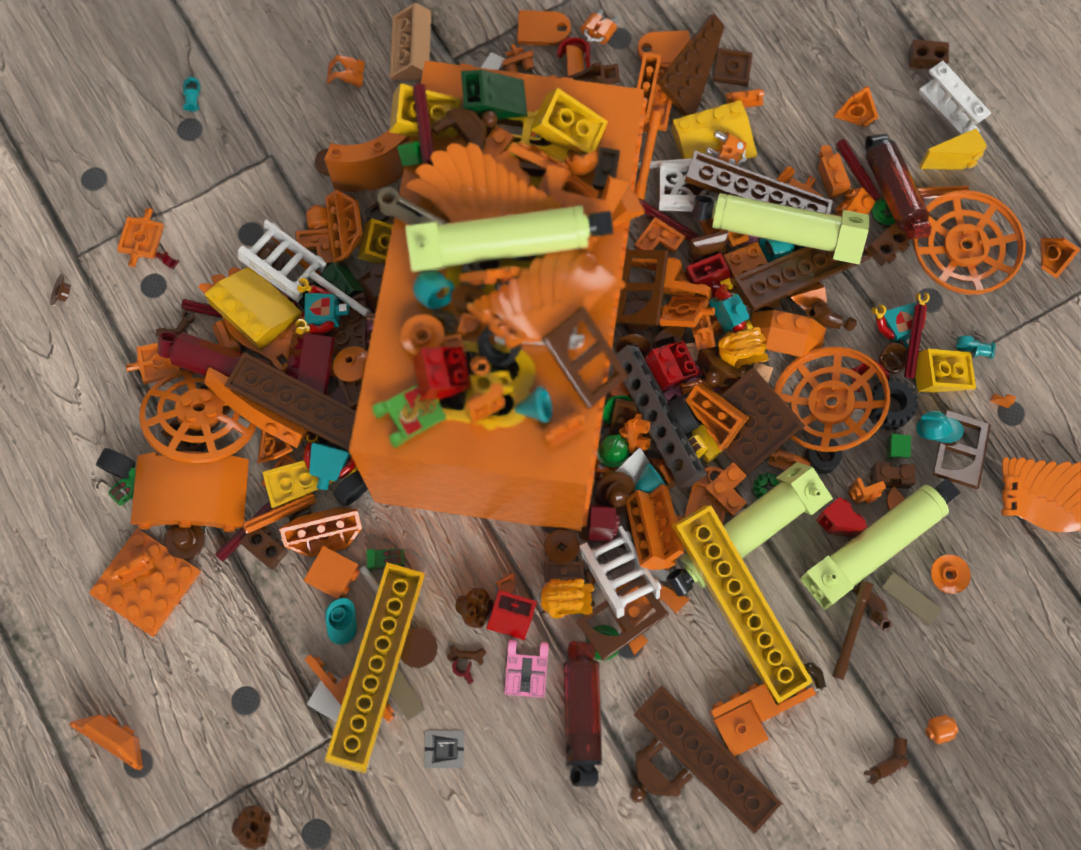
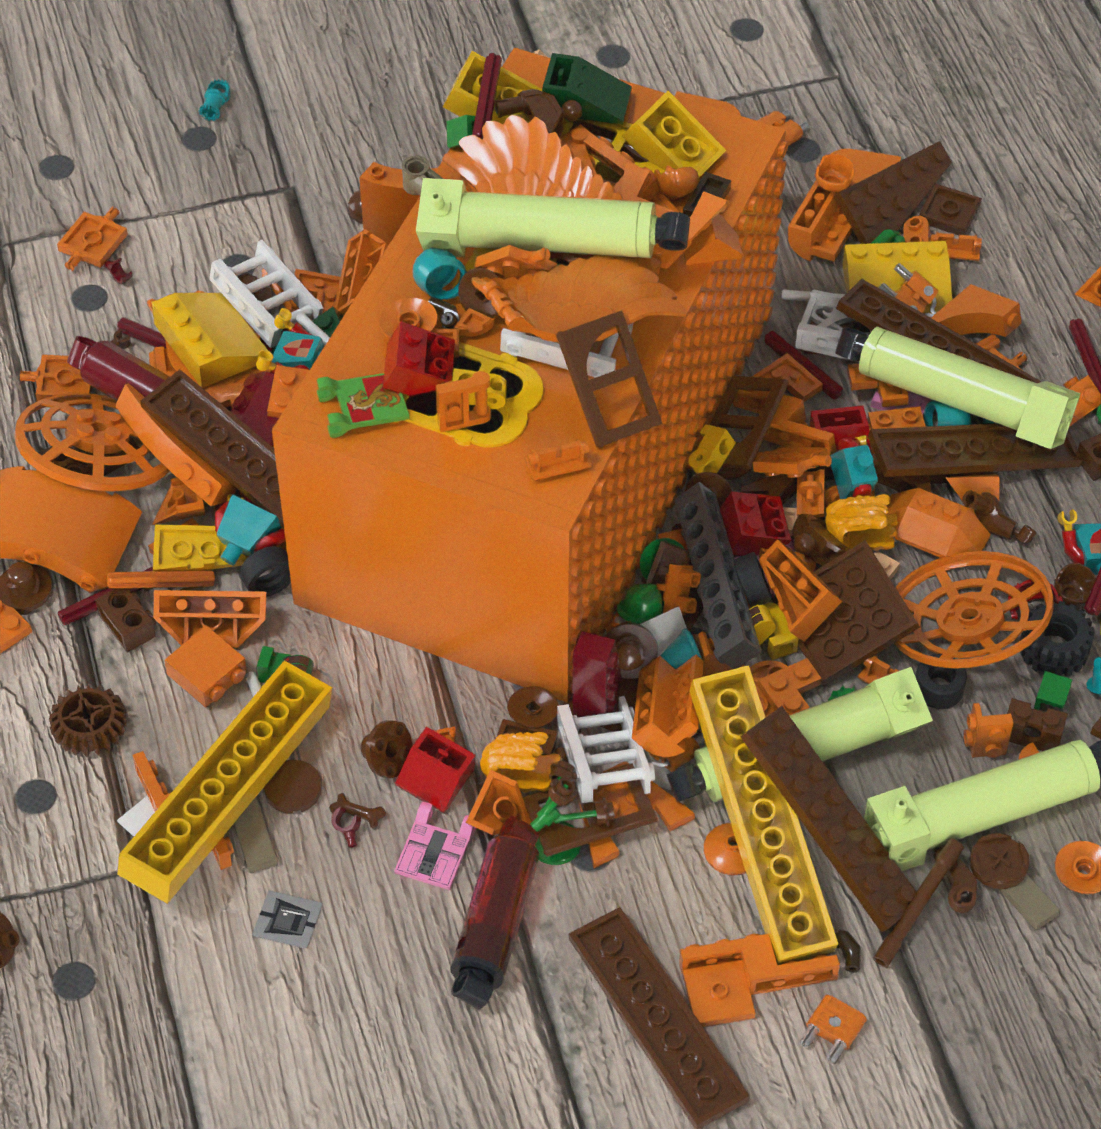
camera: 15 degrees right, 20 degrees down
(256, 638) = (72, 728): none -> reddish brown gear
(317, 217) = (329, 261): orange head -> none
(325, 340) = (284, 386): none -> orange plate
(340, 621) = (198, 722): teal piece -> none
(353, 70) = (432, 116): orange piece -> none
(483, 369) = (469, 357): orange pin -> none
(493, 355) = (485, 350): black tyre -> none
(536, 405) = (530, 424): teal hat -> none
(560, 632) = (497, 802): none -> orange slope
(608, 625) = (563, 792): none -> reddish brown plant
(629, 317) = (712, 449): none -> yellow leg
(652, 779) = (571, 1023): reddish brown connector -> none
(653, 126) = (816, 248): orange piece -> none
(654, 66) = (835, 172): none -> orange hair
(698, 104) = (889, 236): none -> green arm
(708, 246) = (850, 391): reddish brown slope -> none
(712, 622) = (720, 853): none -> orange dish
(717, 94) = (916, 229): none -> orange plate
(776, 152) = (980, 312): none -> orange arch
(786, 593) = (830, 817): none -> reddish brown plate
(822, 732) = (835, 1023): none -> orange piece
(833, 173) = (1052, 352): orange brick -> none
(841, 519) = (938, 756): red slope -> none
(890, 765) = (929, 1088): reddish brown arm -> none
(895, 584) = (999, 861): none -> reddish brown tile
(941, 729) = (1014, 1058): orange head -> none

